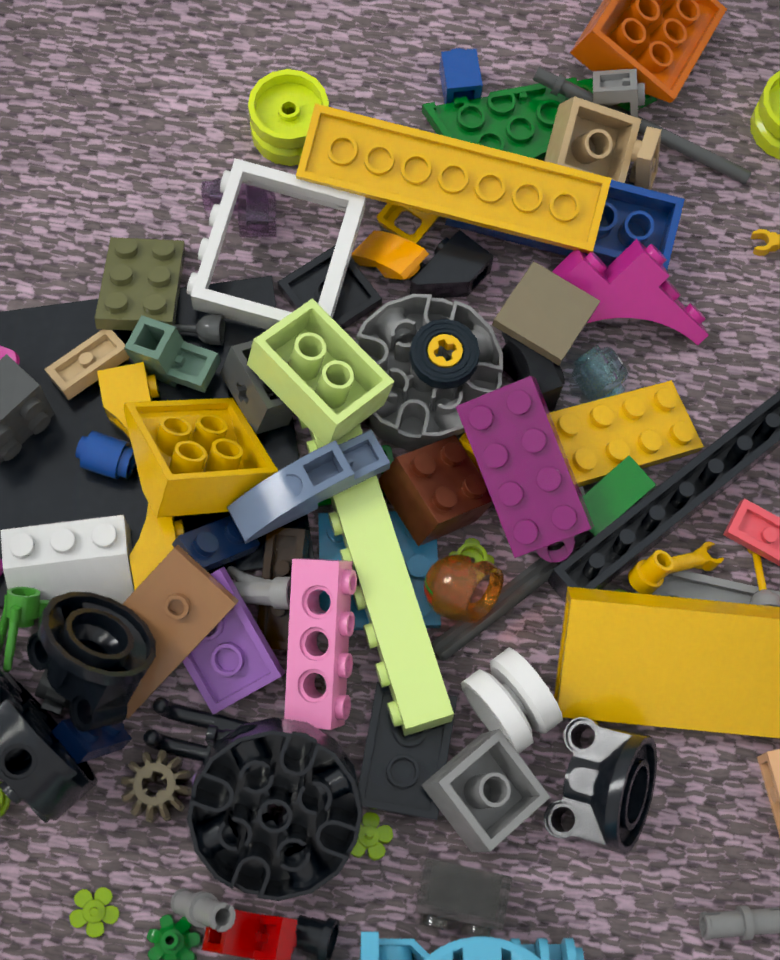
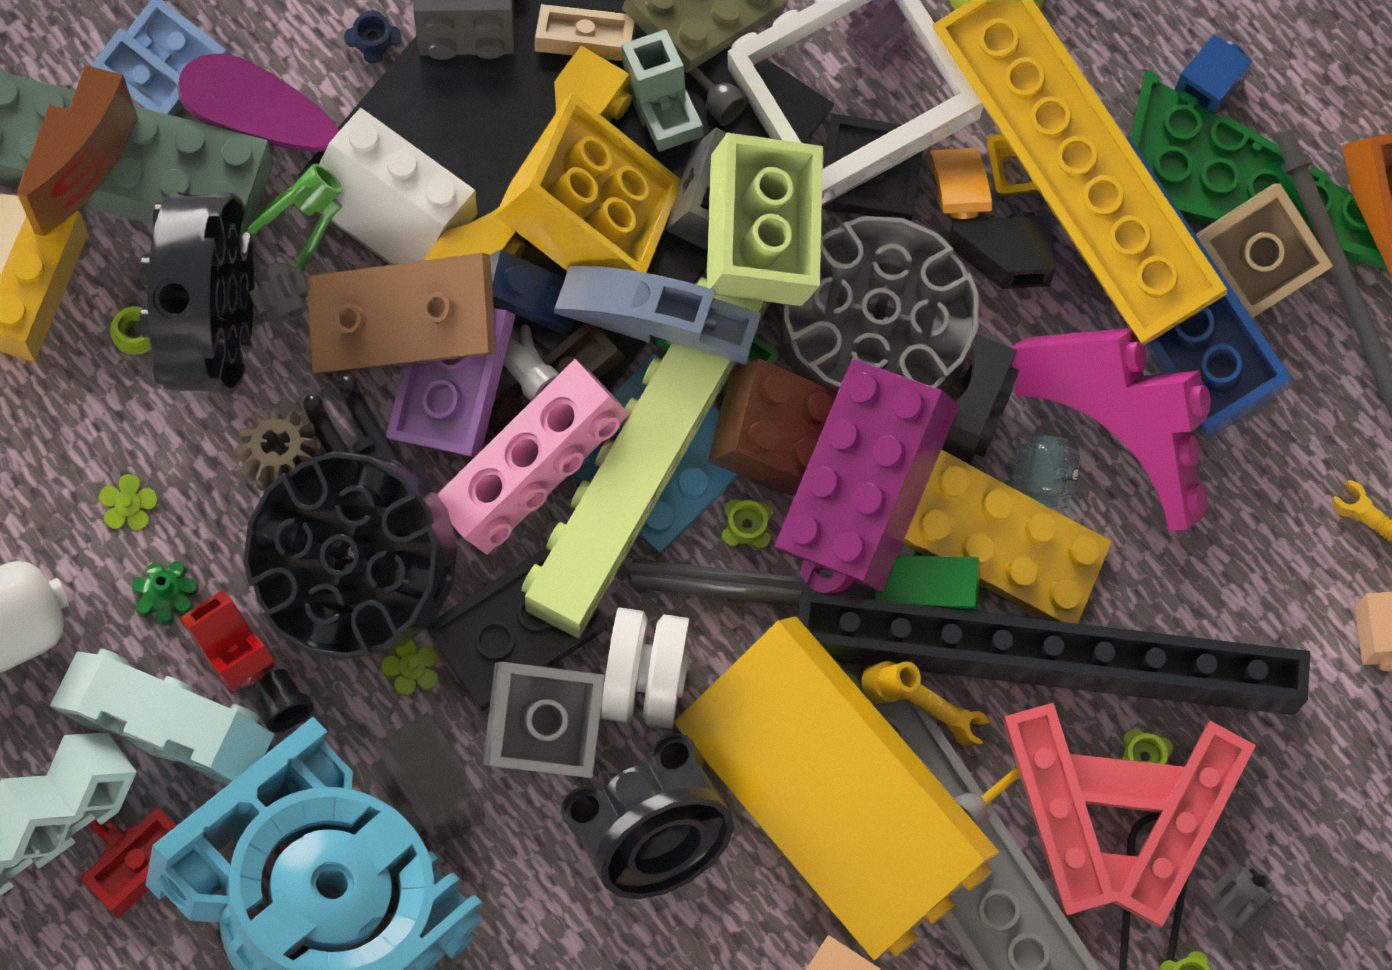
camera: 45 degrees right, 0 degrees up
(92, 655) = (327, 280): black piece -> none
(92, 743) = (266, 353): dark blue plate -> none
(106, 455) = (515, 126): blue brick -> none
(203, 909) = (210, 581): light grey pin -> none
(436, 370) = (916, 331): black bush -> none
(452, 583) = (701, 519): clear orange helmet -> none
(546, 313) = (1032, 356): dark tan tile -> none
(618, 87) = (1349, 219): light grey bracket -> none
(646, 158) = (1303, 316): tan plate -> none

